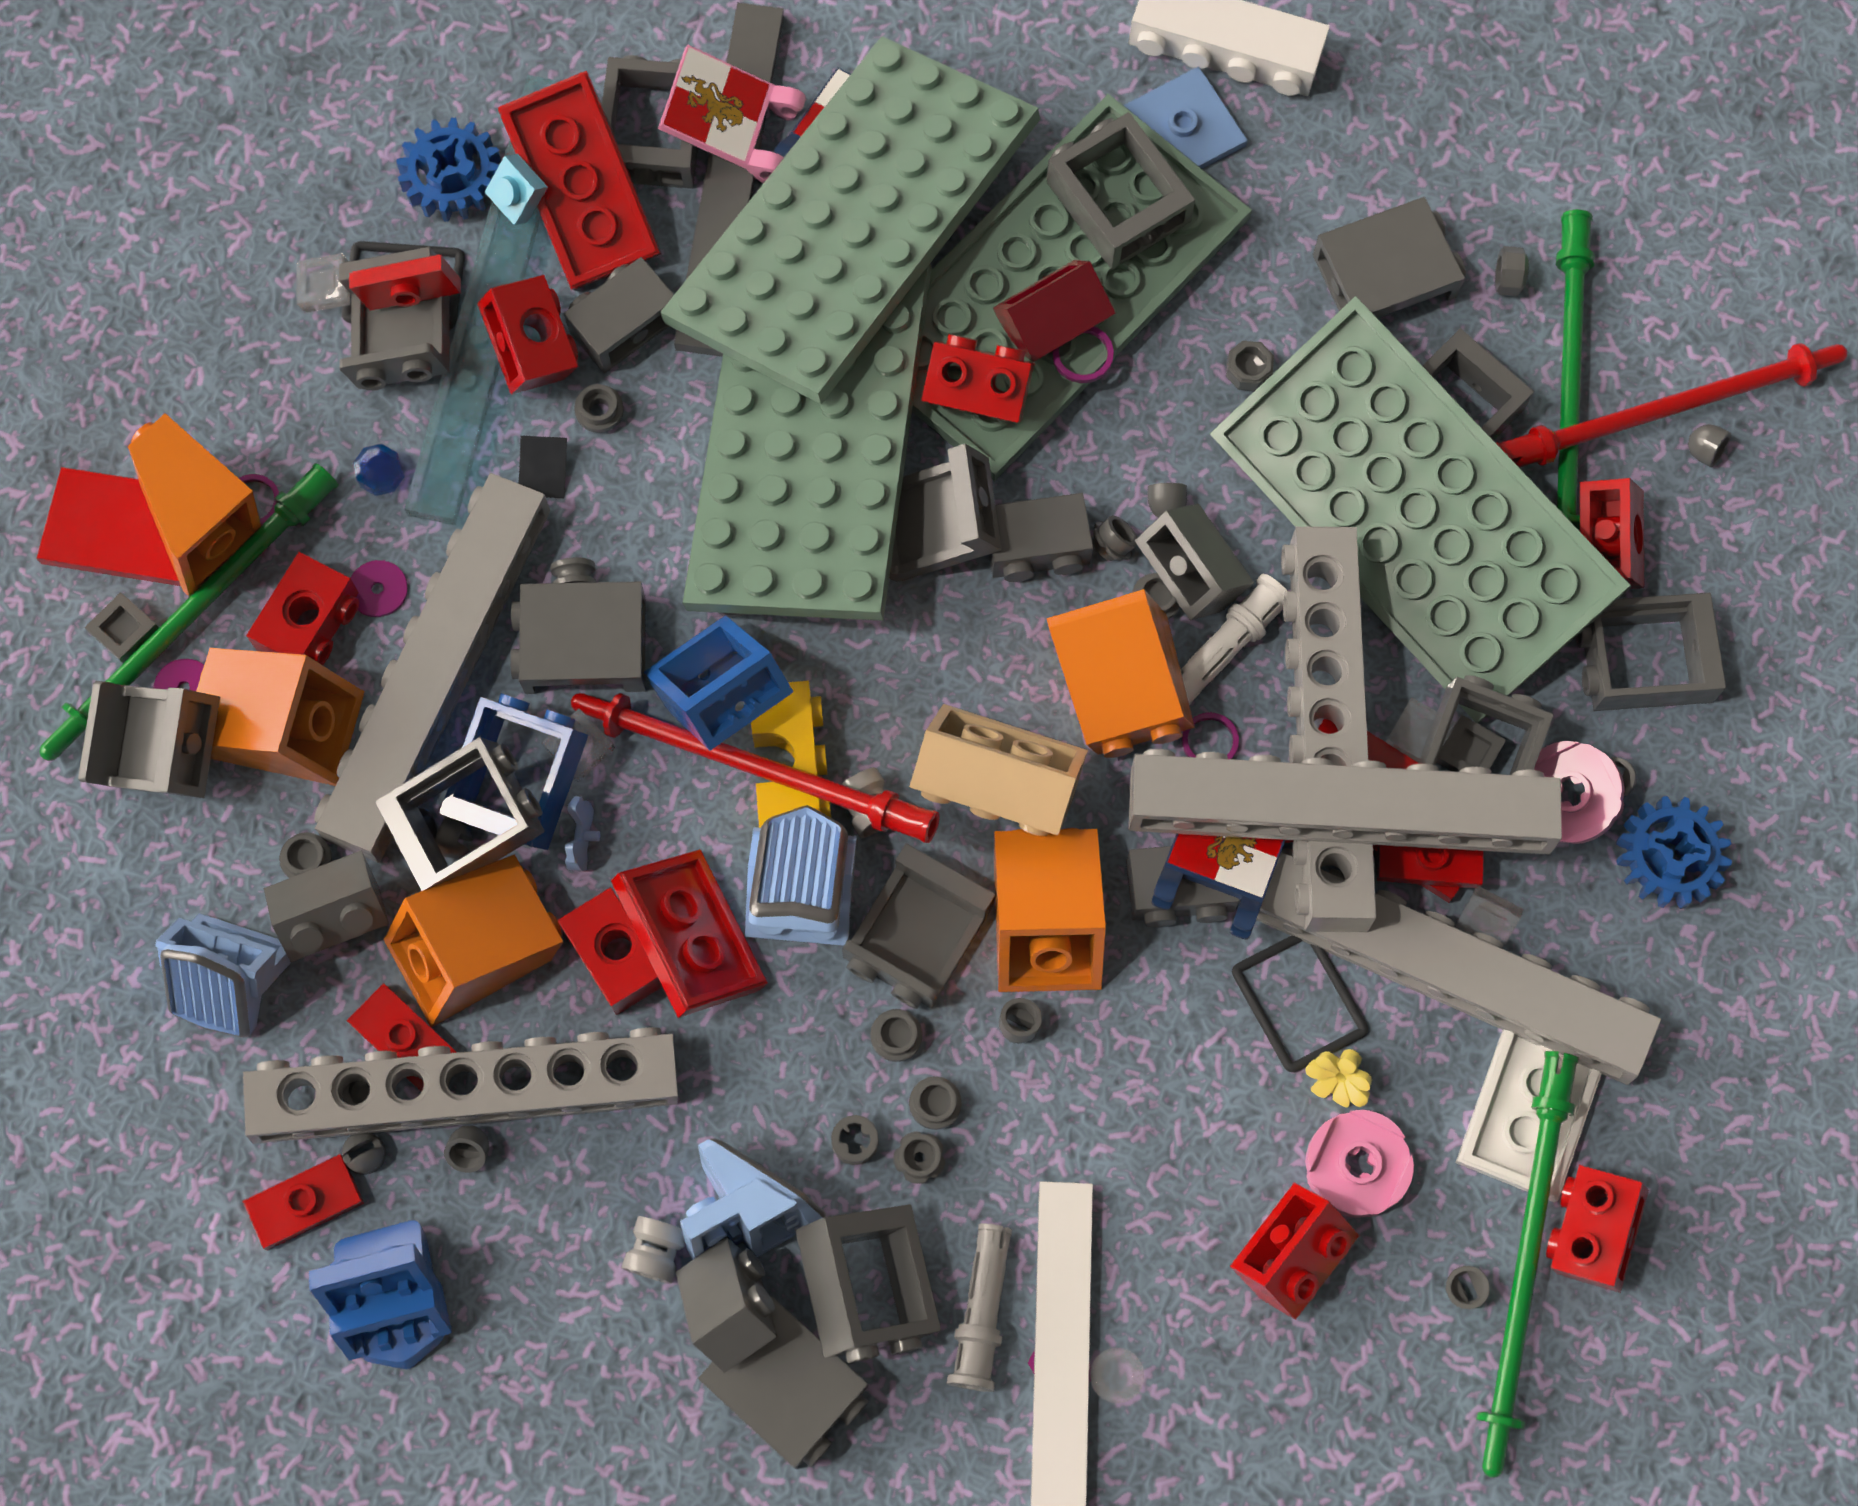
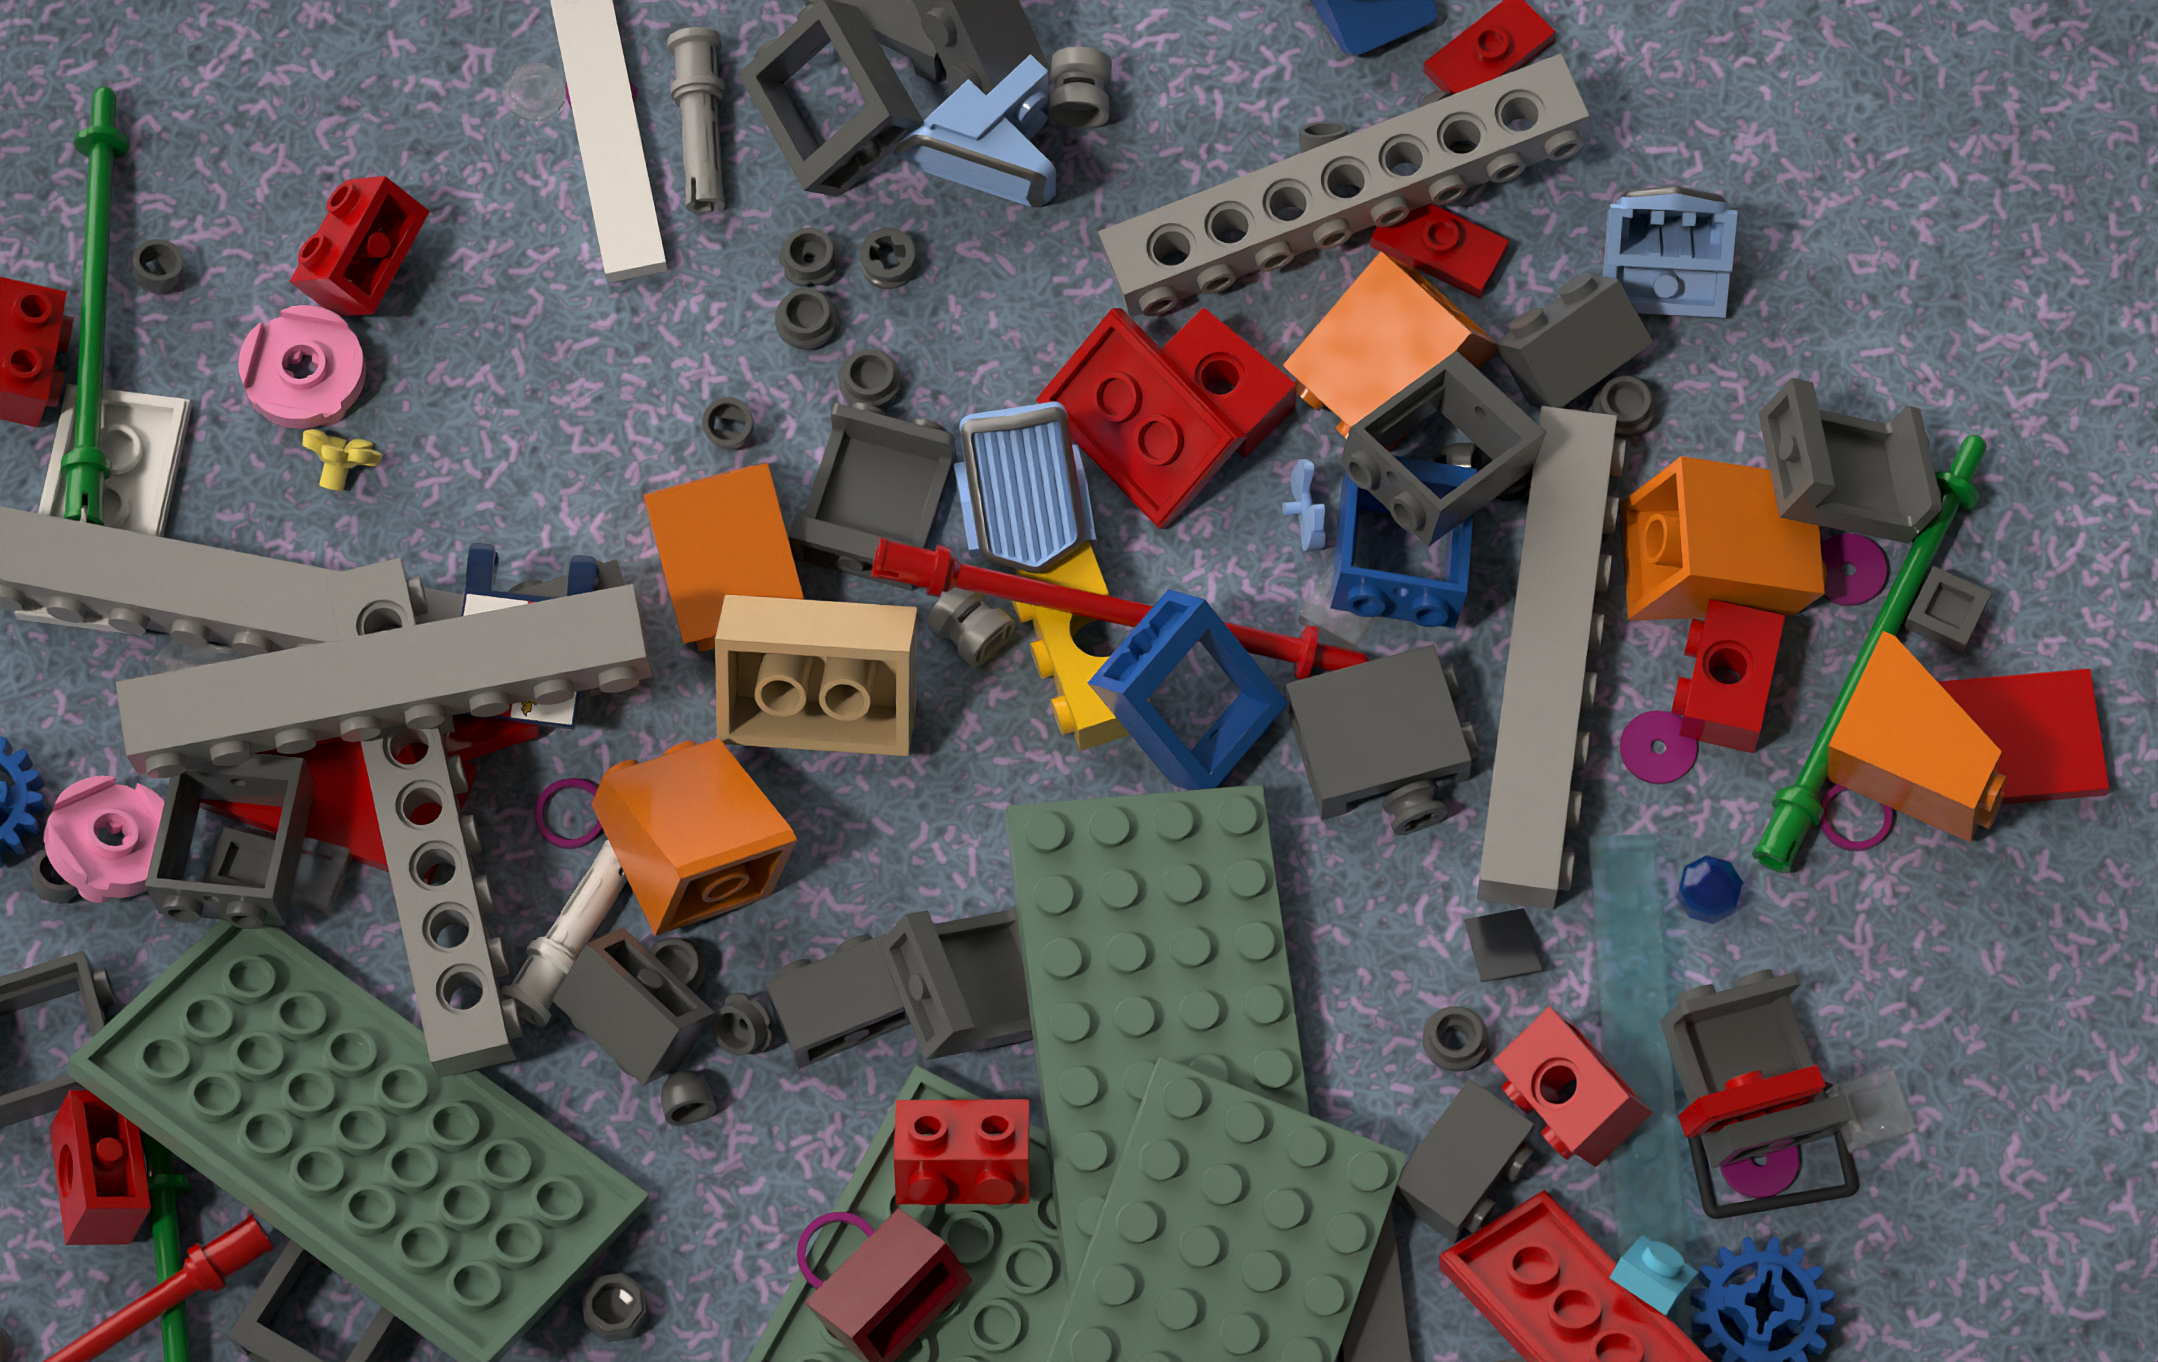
camera: 170 degrees right, 5 degrees down
(1264, 1021) = (371, 482): black piece -> none

